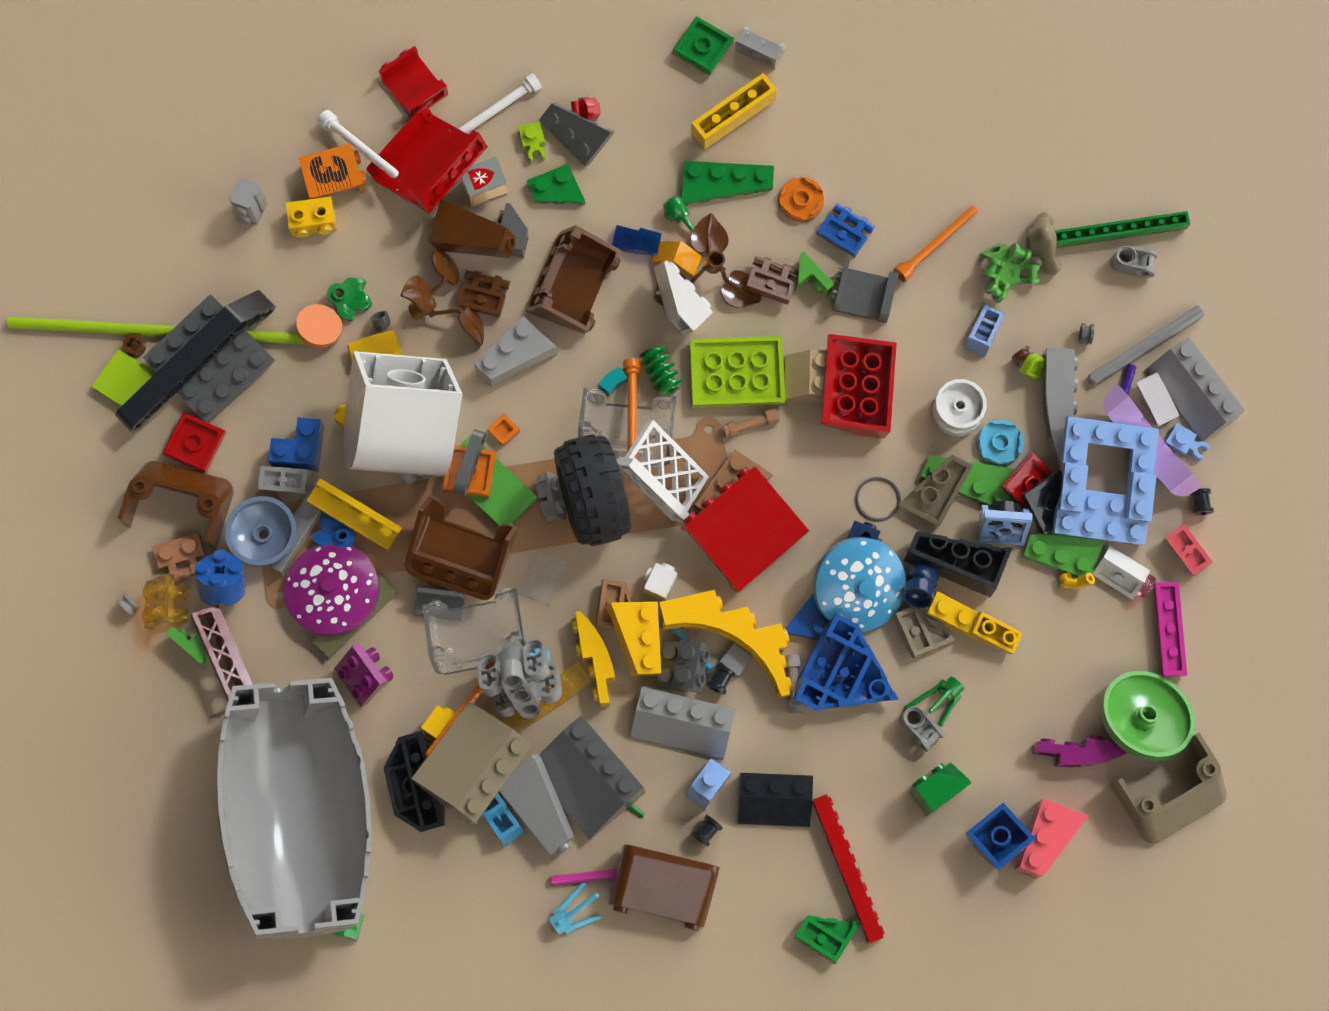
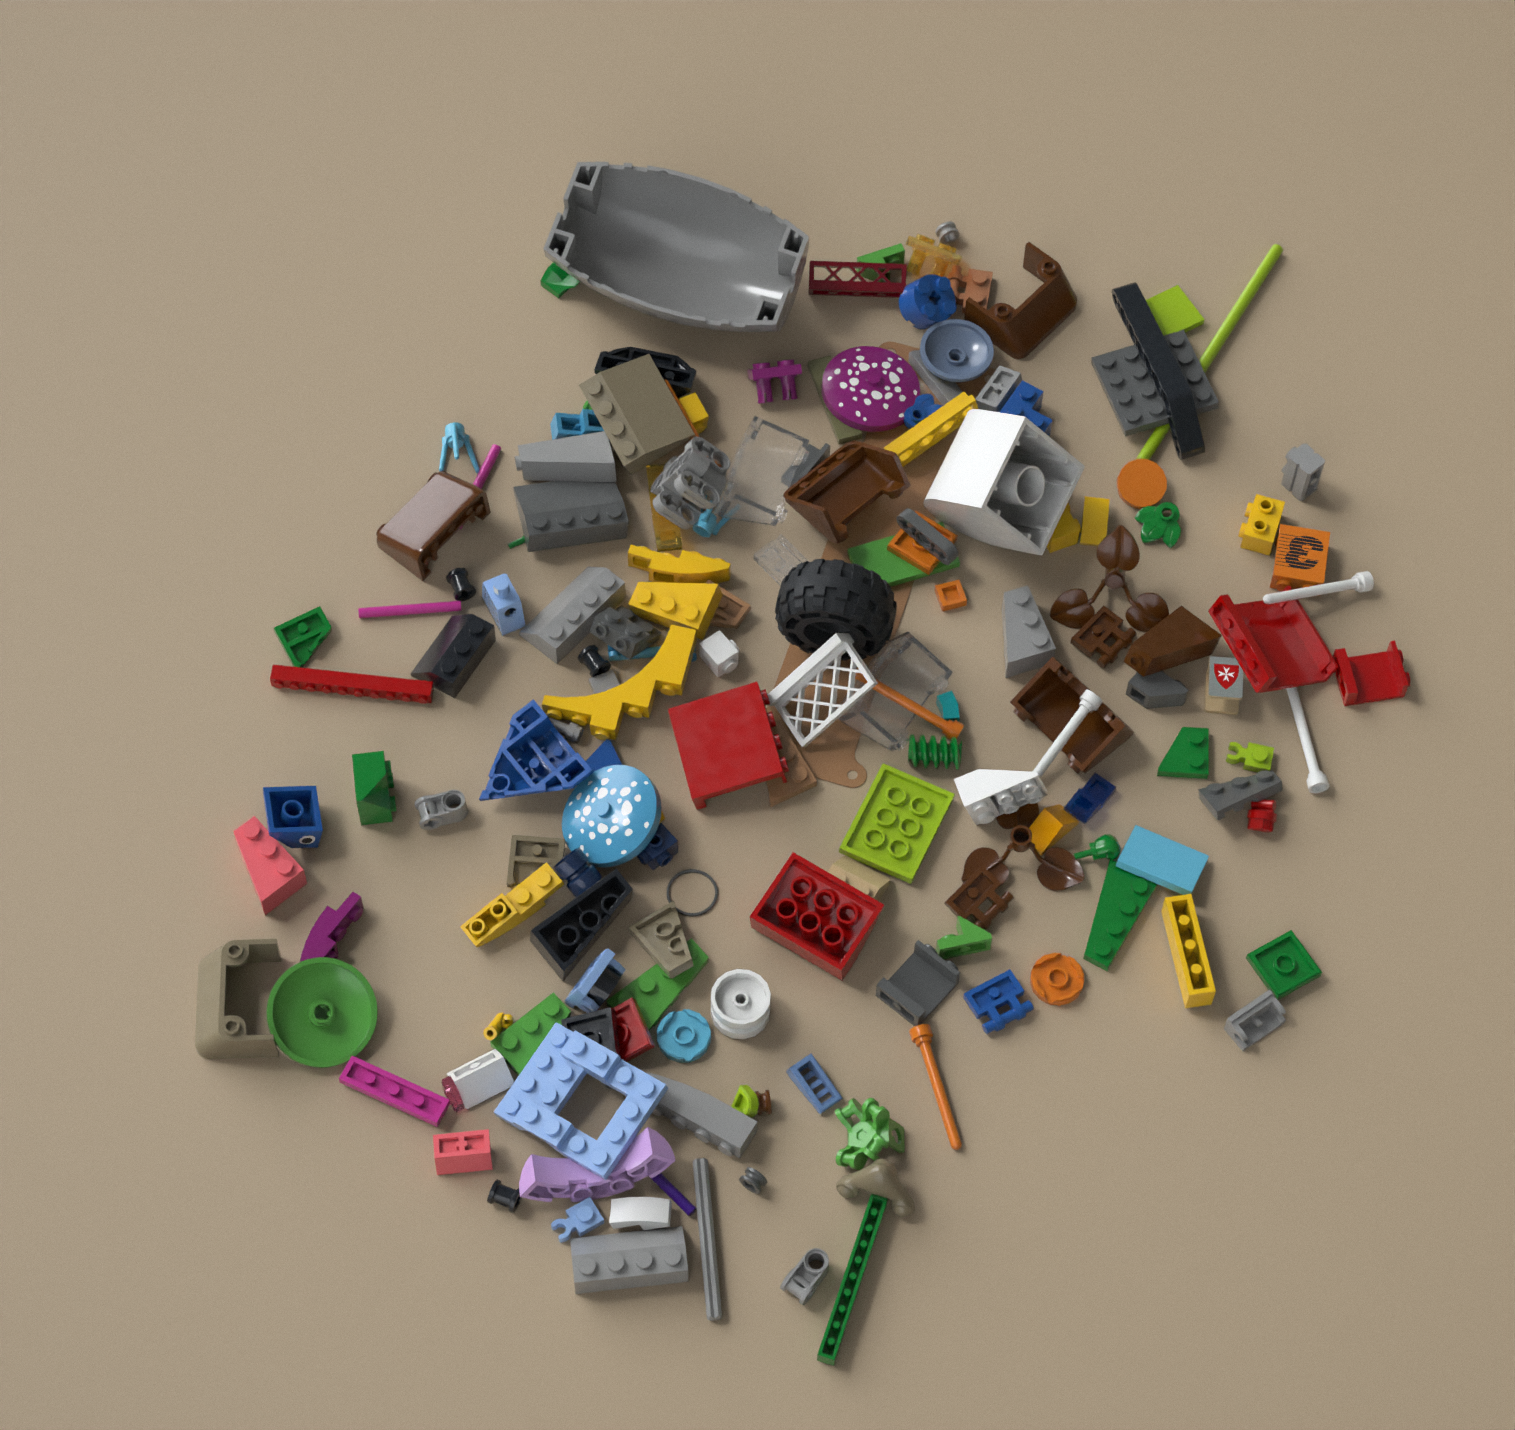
camera: 120 degrees right, 15 degrees down
(128, 341) = (1198, 340): reddish brown bush -> none
(194, 442) = (1076, 341): red plate -> none
(561, 267) = (1088, 703): none -> white piece
(663, 164) = (1162, 861): none -> medium azure tile
(731, 429) = (833, 829): medium nougat bar -> none
(750, 862) = (409, 609): none -> dark pink bar
(949, 691) = (461, 855): green plant -> none

